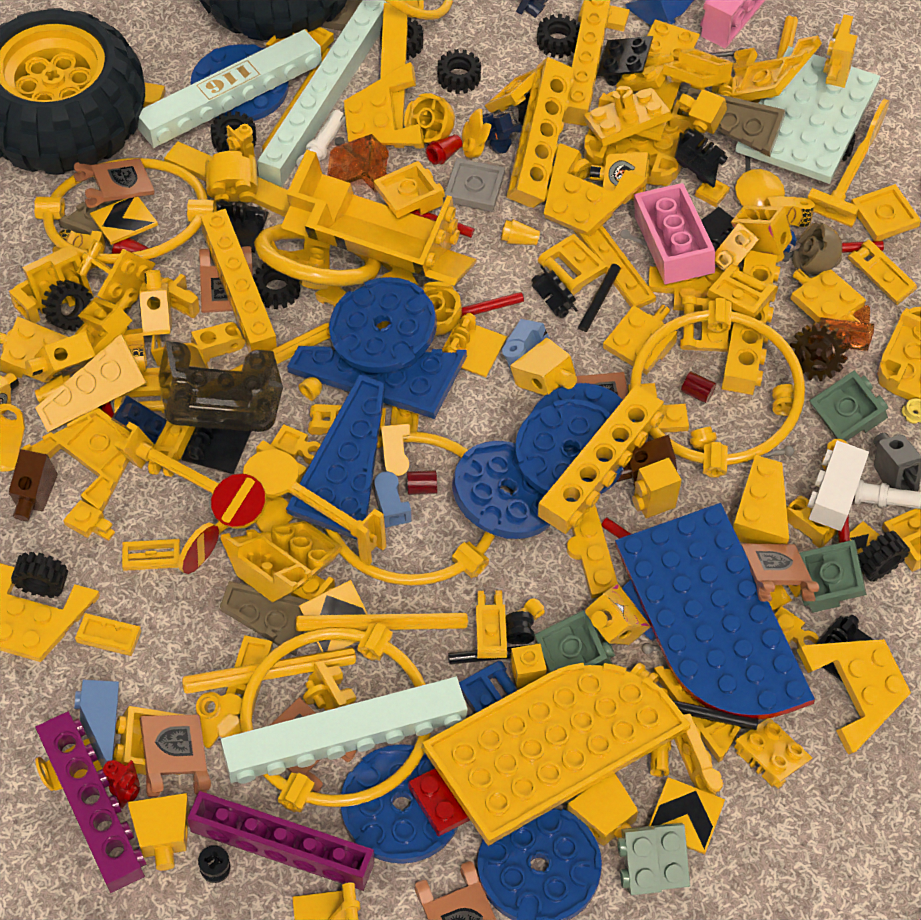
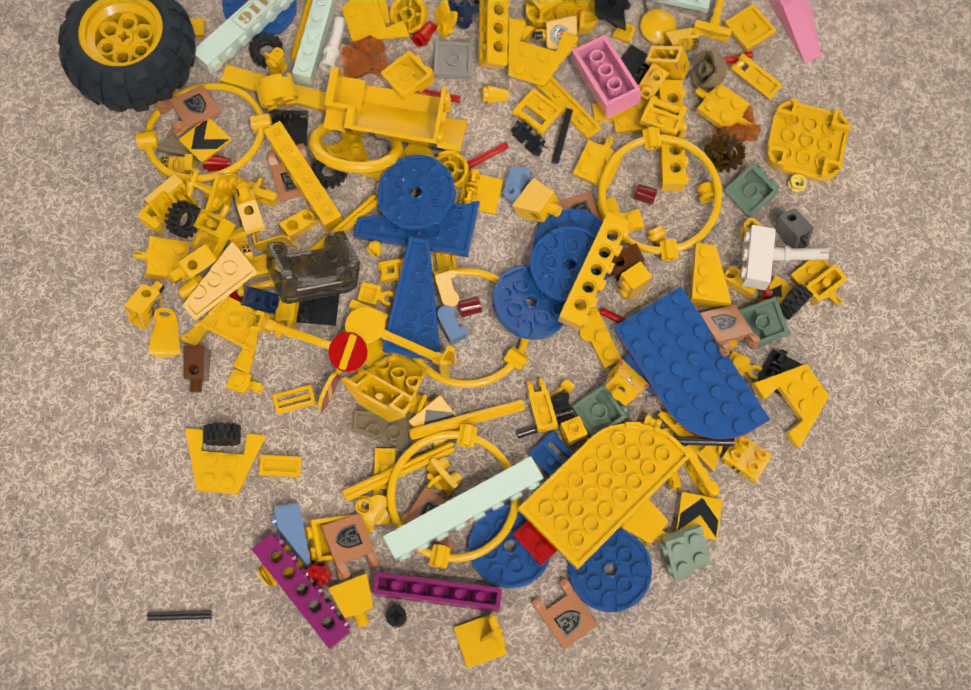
camera: 15 degrees left, 15 degrees up
(709, 340) = (644, 155): yellow plate -> none

